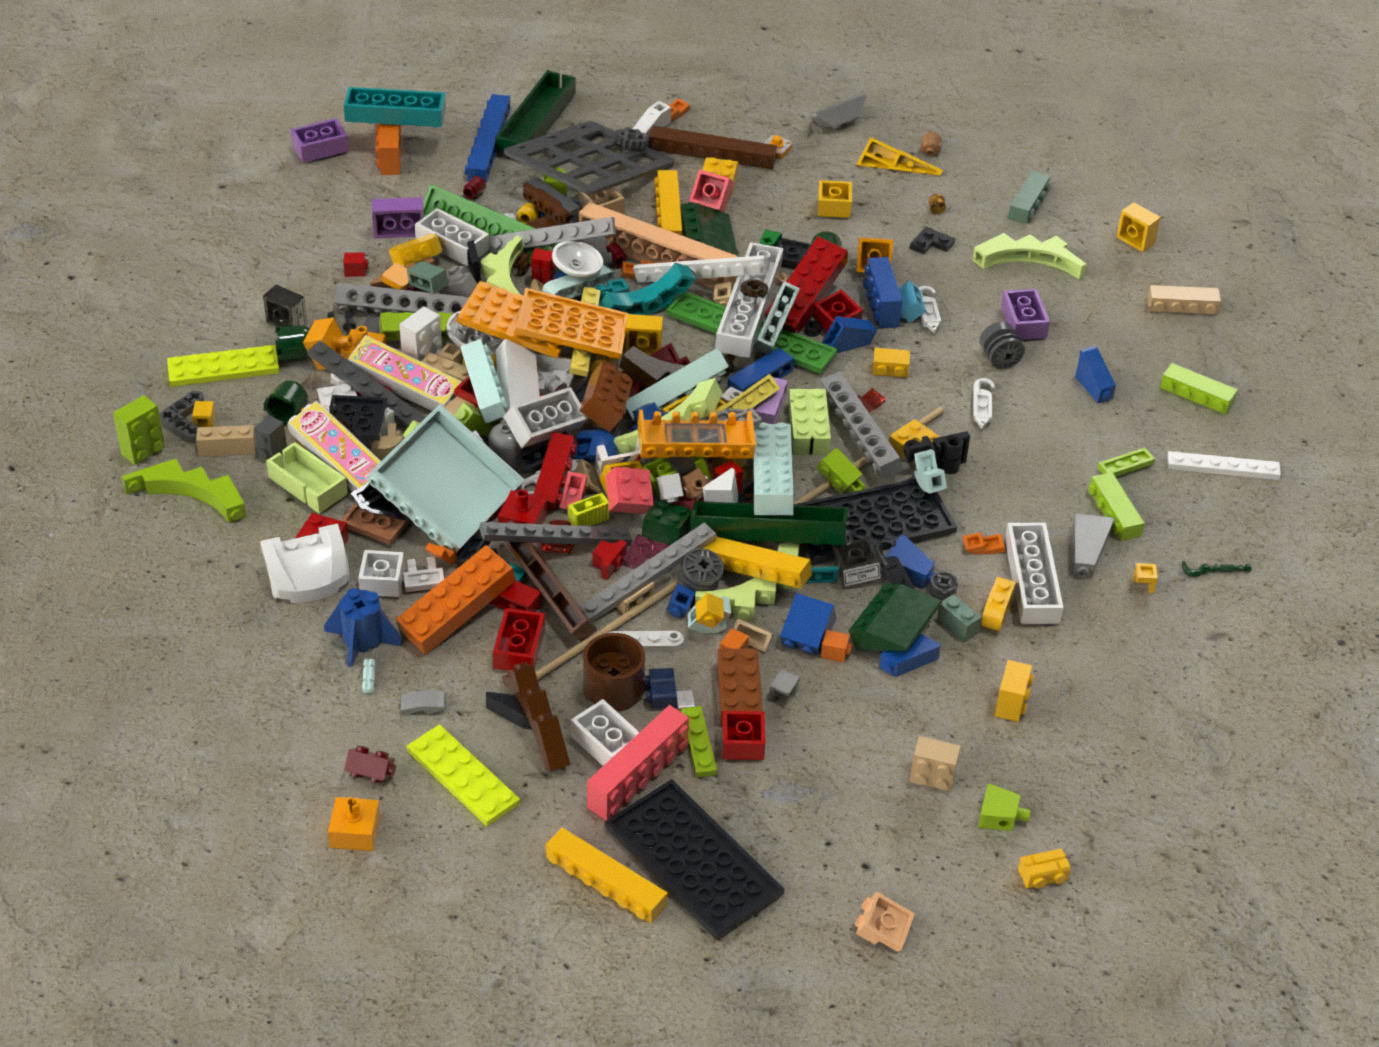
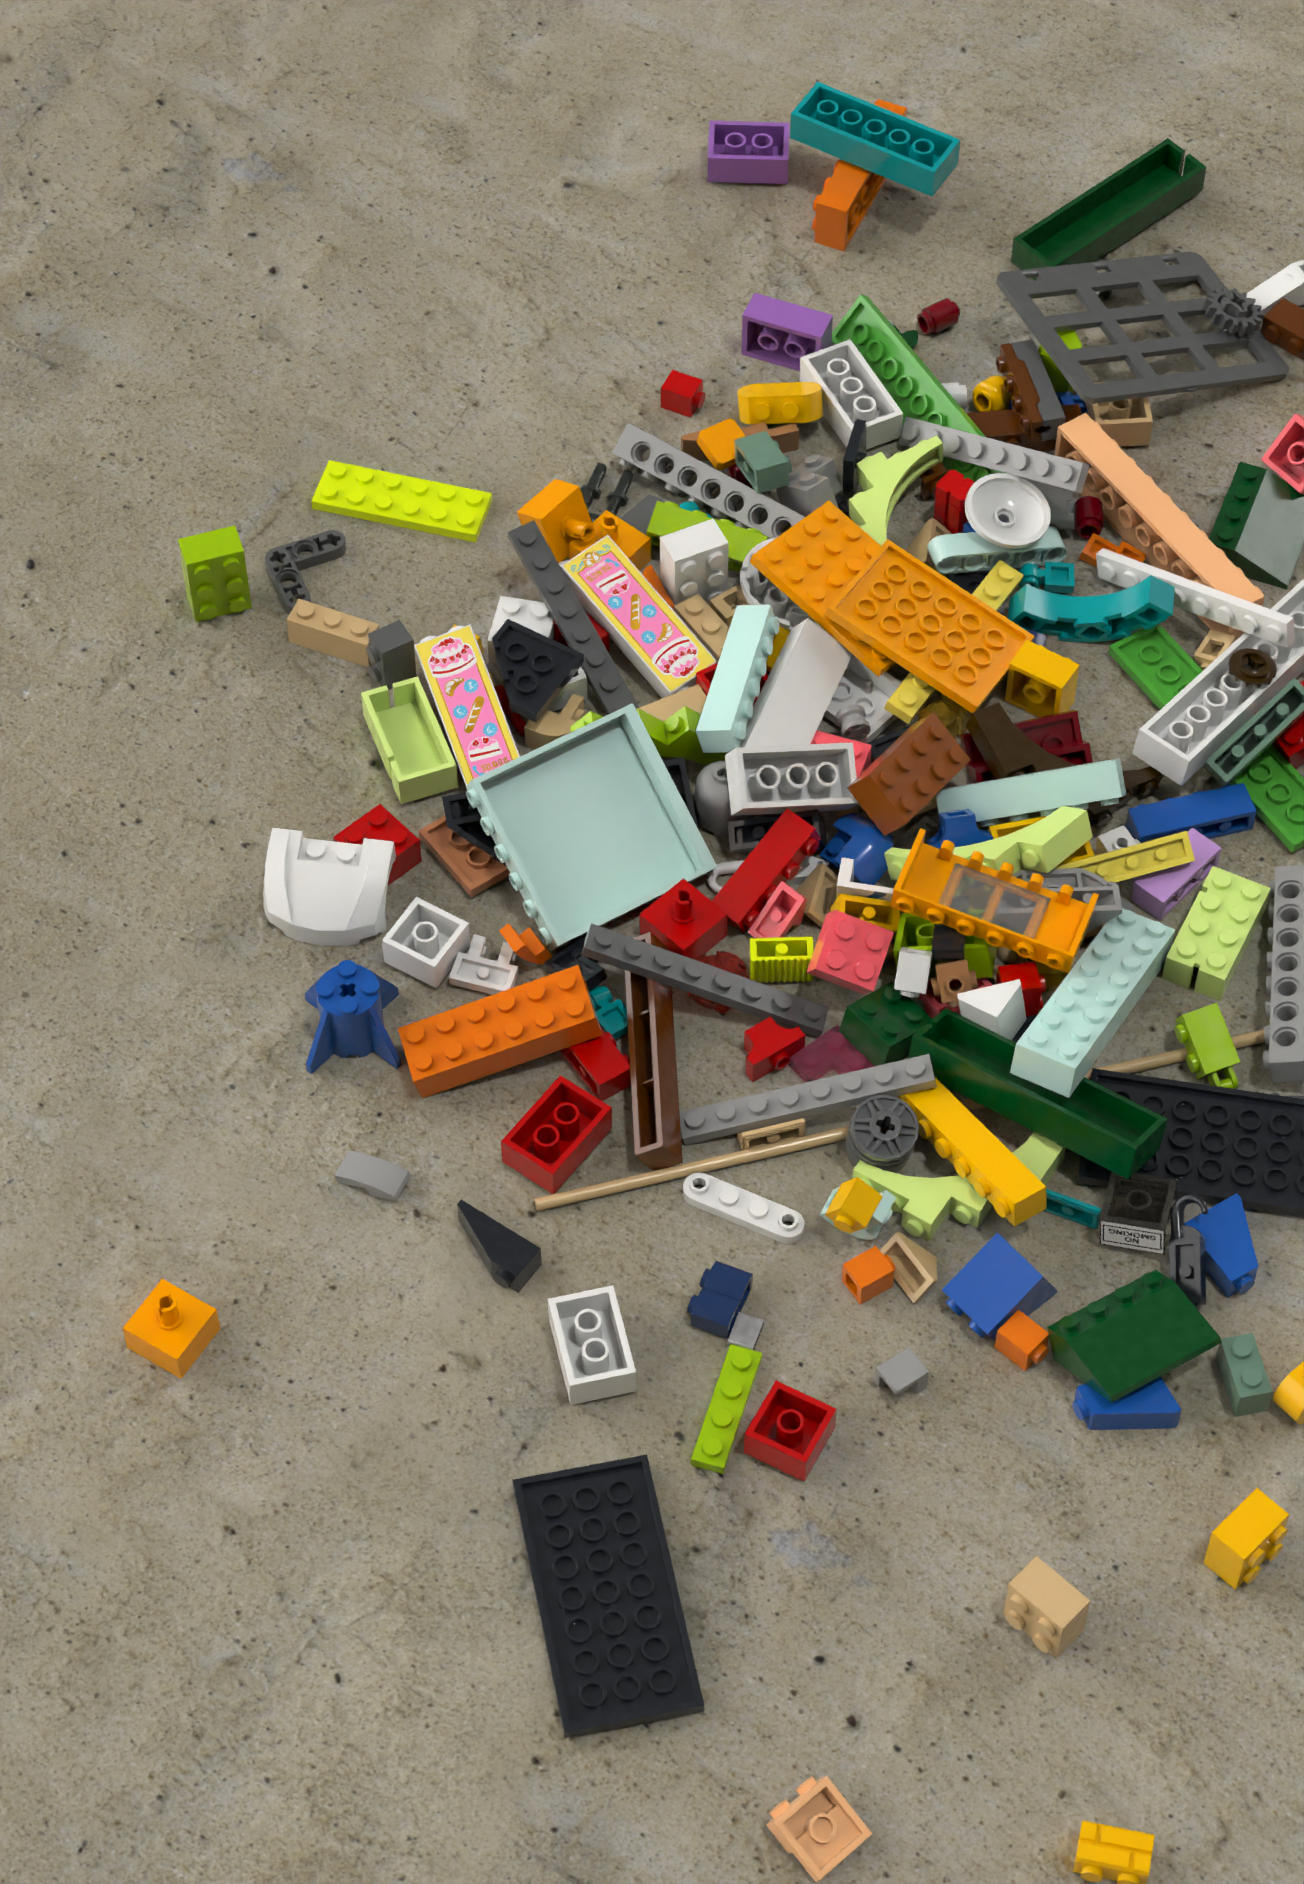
camera: 30 degrees right, 10 degrees up
(170, 479) = (225, 667): lime arch -> none
(204, 413) = (327, 577): yellow brick -> none
(284, 307) = (532, 439): clear smoke brick -> none
(286, 401) = (448, 600): dark green cylinder -> none
(290, 342) = (505, 497): dark green cylinder -> none
(368, 676) = (322, 1100): light aqua axle -> none
(374, 765) = (241, 1244): dark red brick -> none
(463, 775) = (364, 1316): neon yellow plate -> none
(484, 150) = (992, 252): blue brick -> none
(545, 726) = (506, 1271): reddish brown arch -> none
(606, 875) = (466, 1565): yellow brick -> none
(614, 670) = (657, 1245): reddish brown brick -> none
(637, 763) = (609, 1409): coral brick -> none
(668, 201) = (1232, 444): yellow brick -> none
(680, 601) = (836, 1157): blue brick -> none
(738, 680) = (836, 1342): dark orange brick -> none
(943, 585) = (1246, 1315): dark grey wheel -> none
(1001, 809) = (1108, 1726): lime torso -> none

